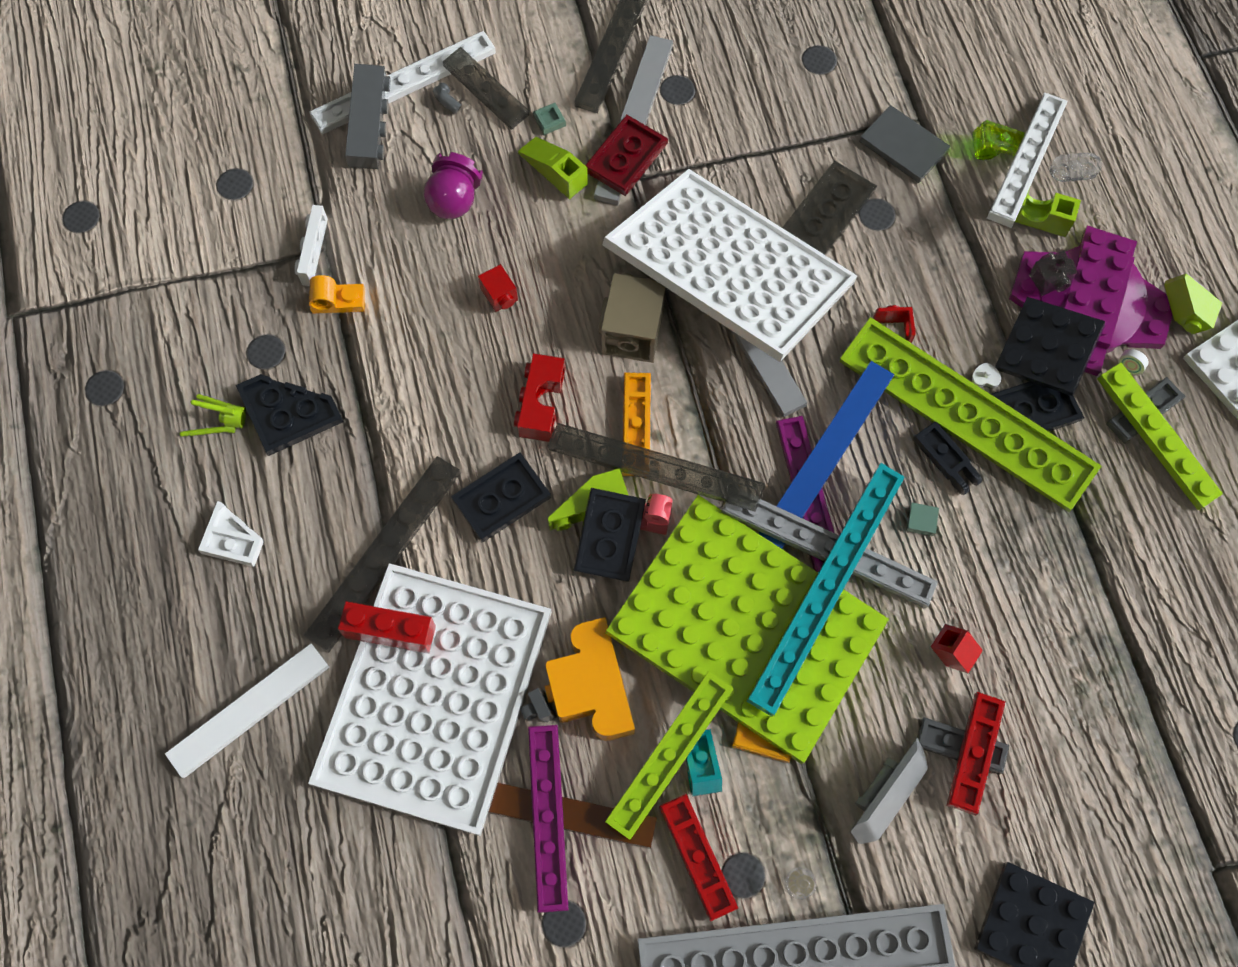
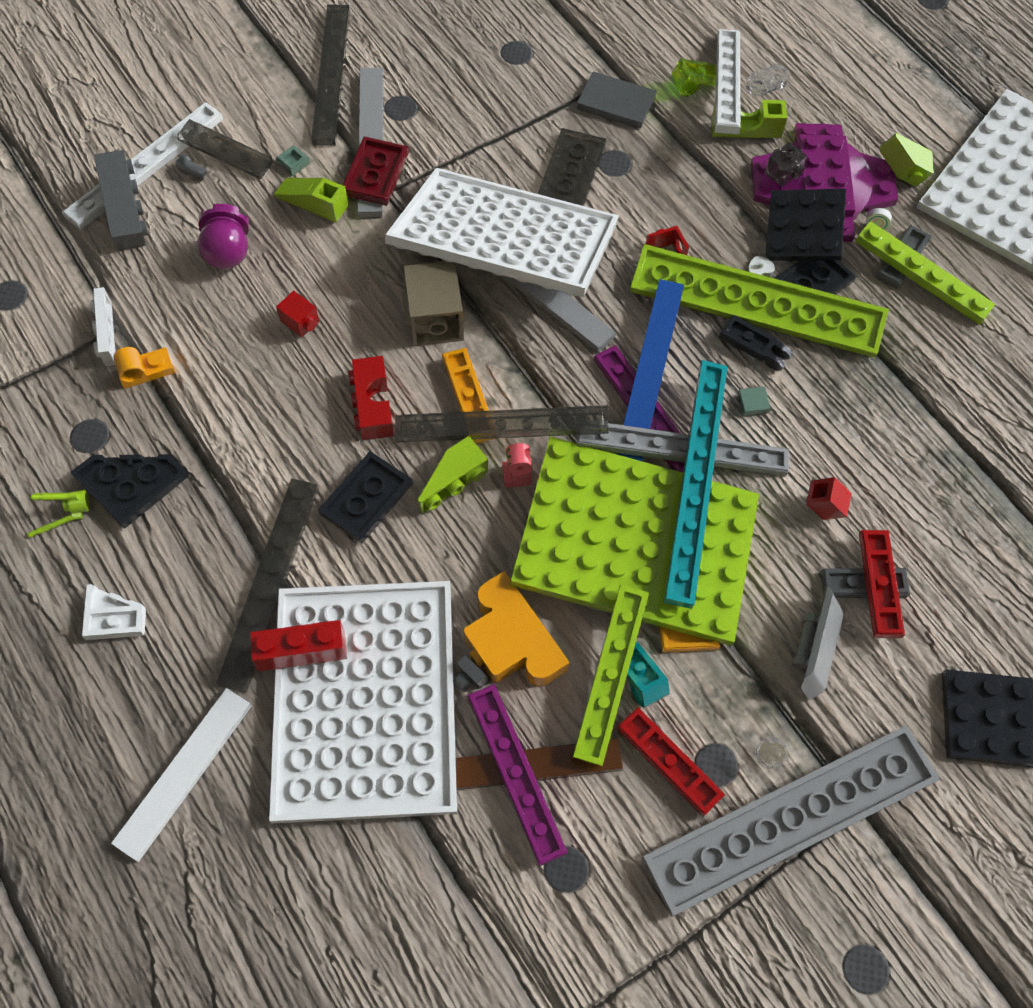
camera: 20 degrees left, 5 degrees down
(609, 534) = (480, 497): black tile -> none

